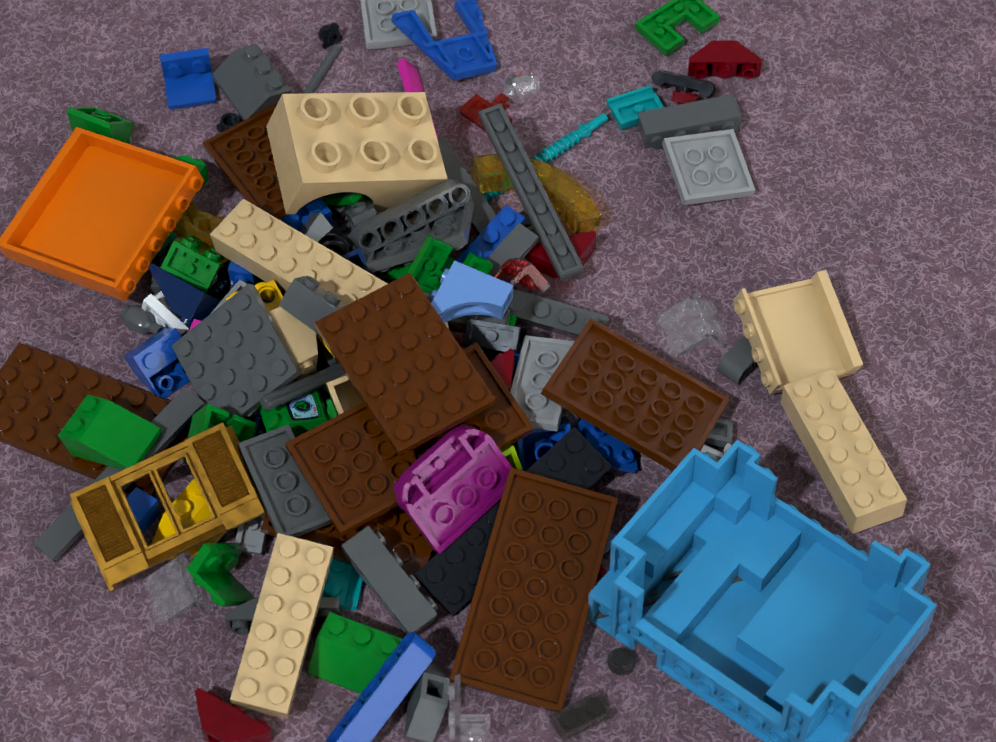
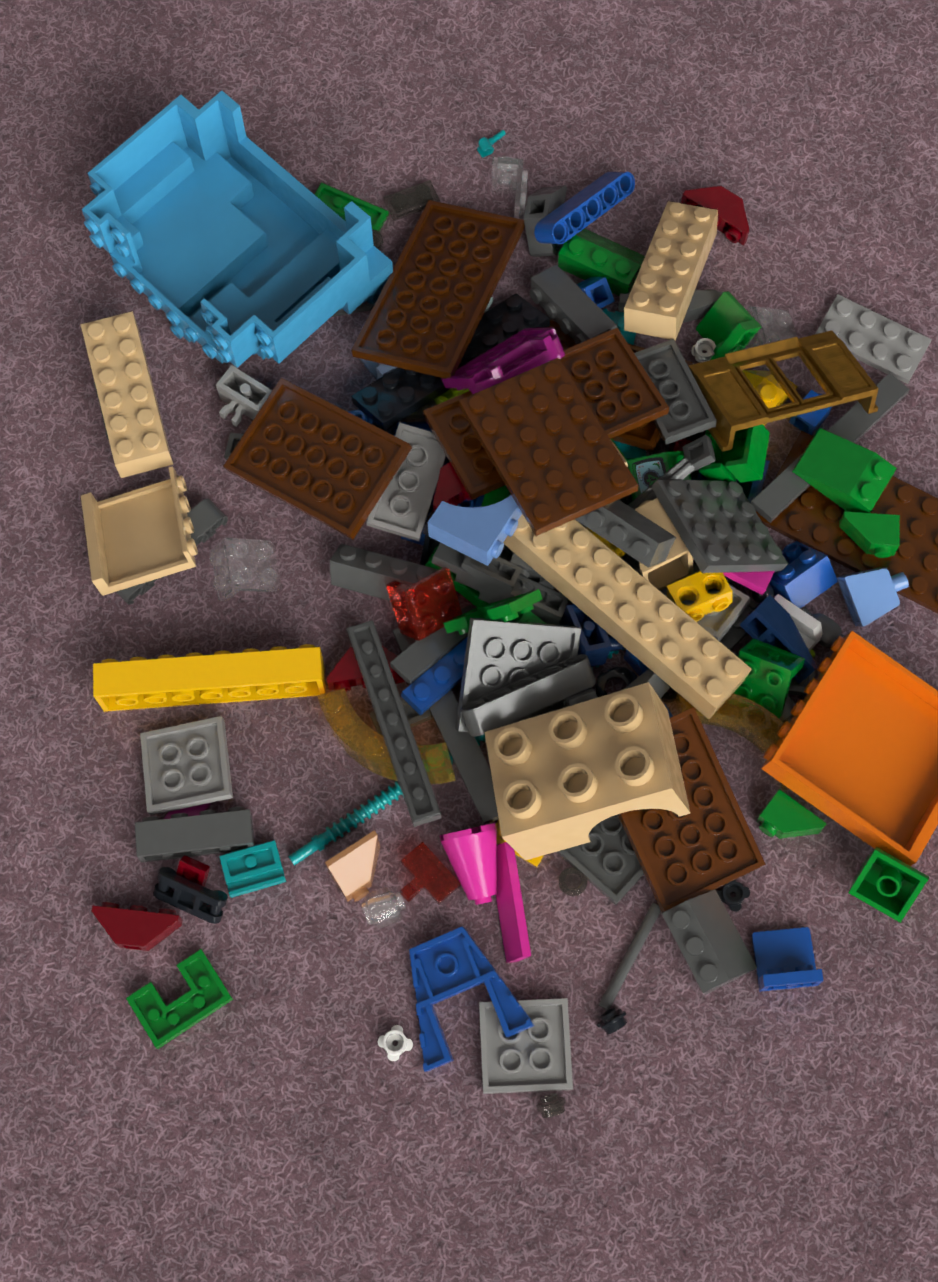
camera: 175 degrees left, 15 degrees up
(66, 602) = (875, 338): none -> light grey plate
(79, 383) = (873, 532): none -> green slope
(92, 345) = (871, 593): none -> medium blue torso
(244, 566) = (703, 344): none -> white plate
(253, 425) = (699, 452): none -> dark grey plate
(369, 607) = (597, 290): none -> blue brick
(454, 122) = (474, 860): none -> dark pink cone
(501, 6) = (403, 1043): none -> white plate
(550, 108) = (355, 867): none -> slope
(651, 701) = (338, 200): none -> green tile
(700, 223) = (209, 678): none -> yellow brick

